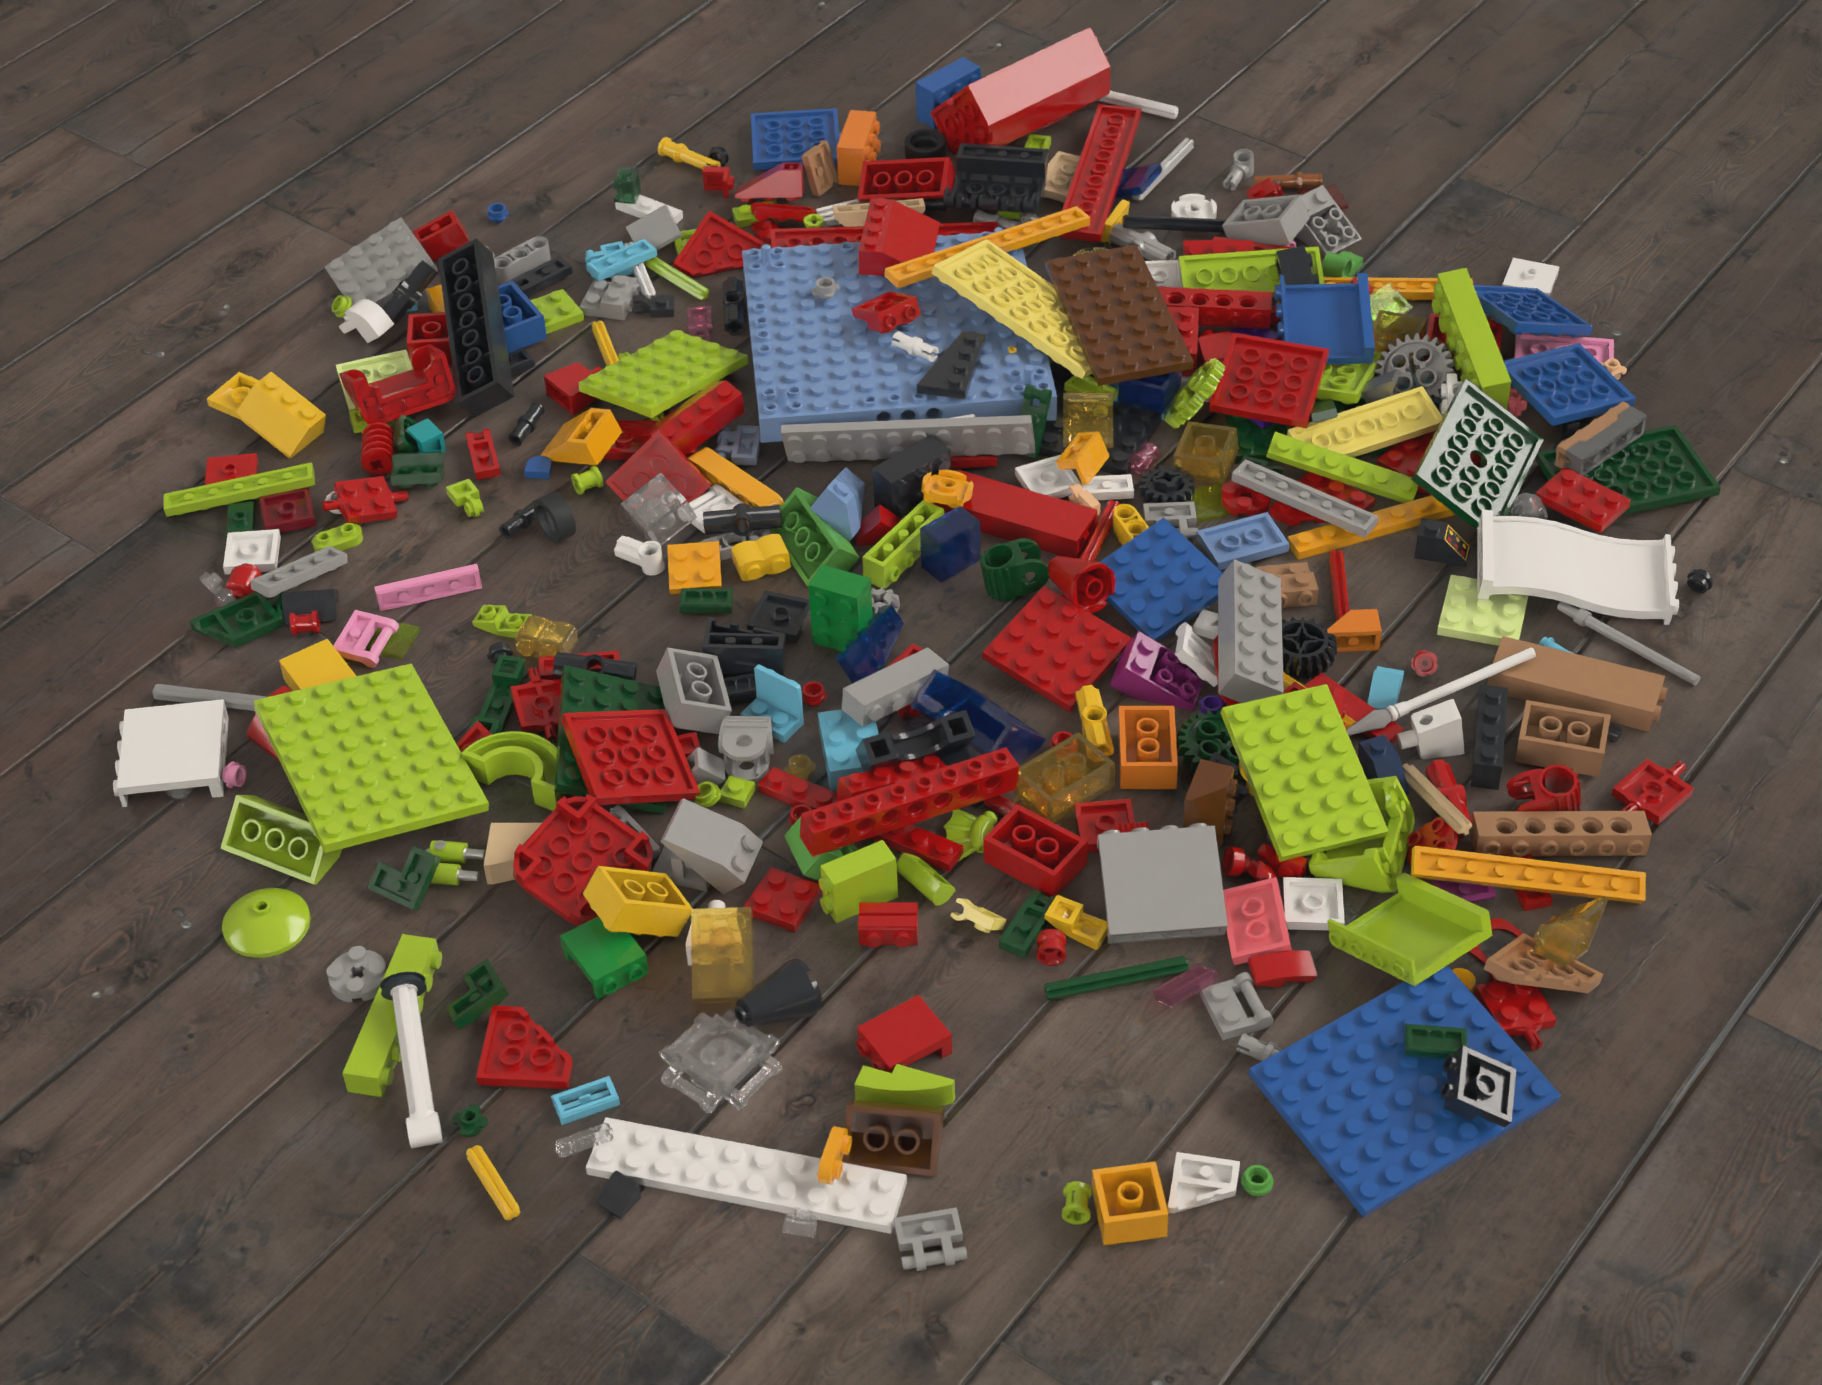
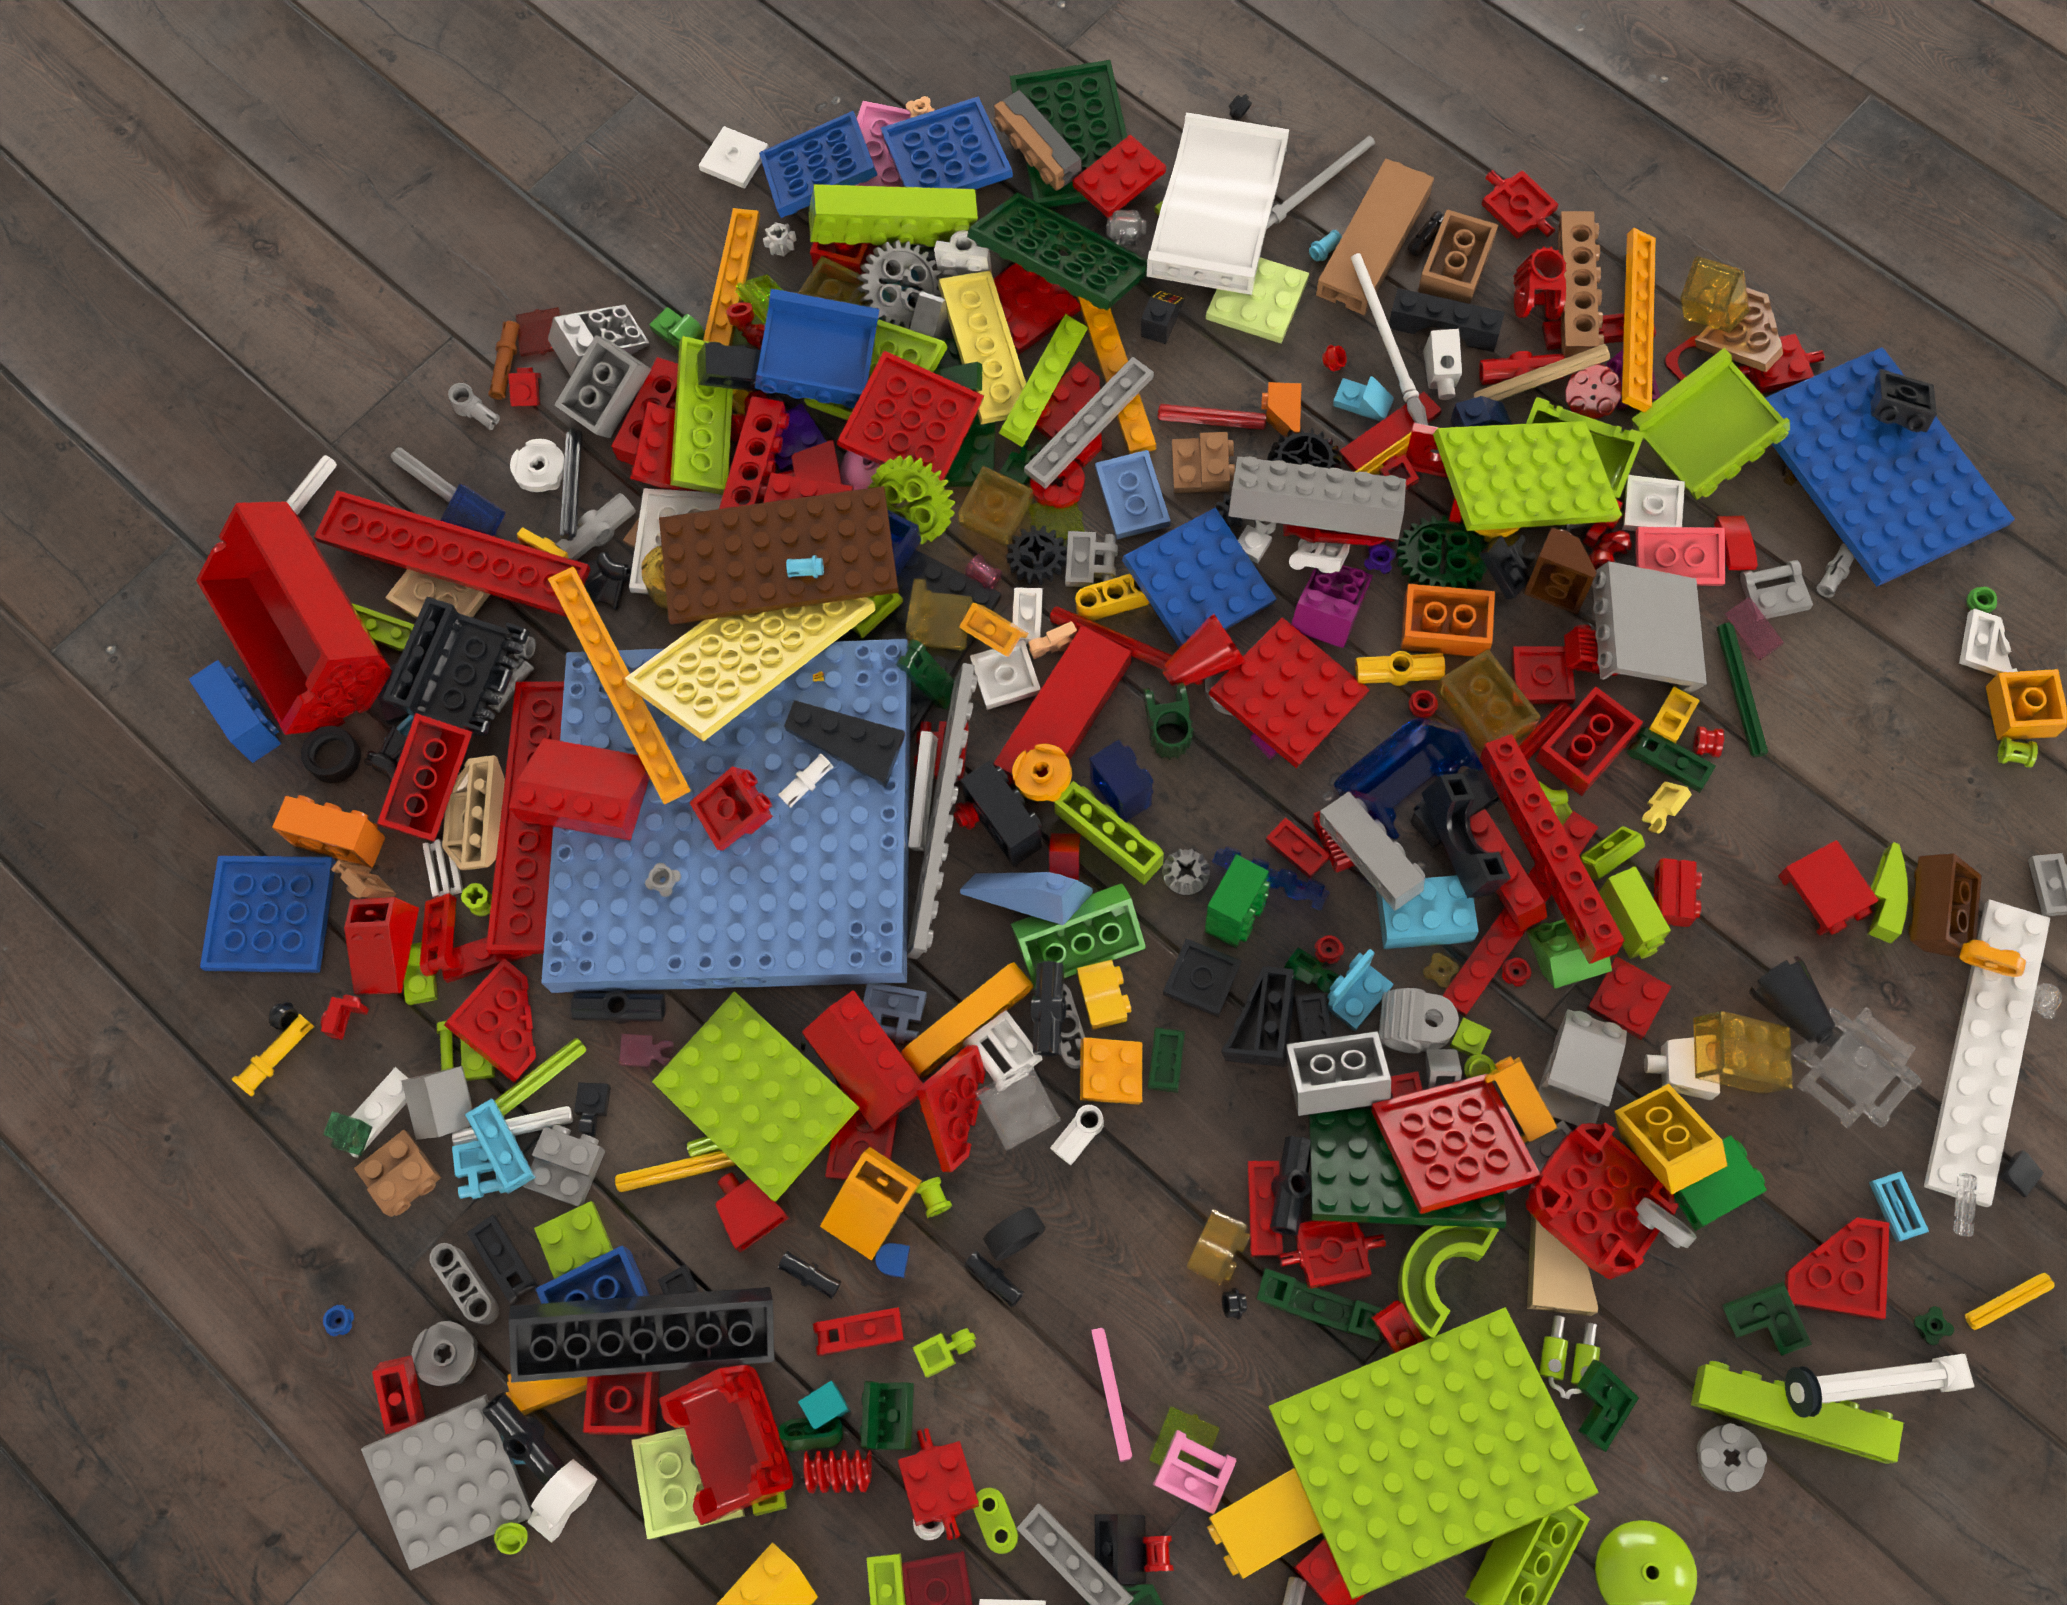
camera: 80 degrees left, 25 degrees up
(499, 621) = (1174, 1301): lime slope -> none
(560, 903) = (1674, 1230): none -> light grey plate
(601, 224) = (397, 1174): none -> medium nougat plate
(658, 816) = (1522, 1098): none -> light orange brick
(796, 671) = (1310, 969): none -> dark green plate
(1101, 320) = (805, 567): none -> medium azure pin
(1432, 1040) = (1855, 424): dark green plate -> none

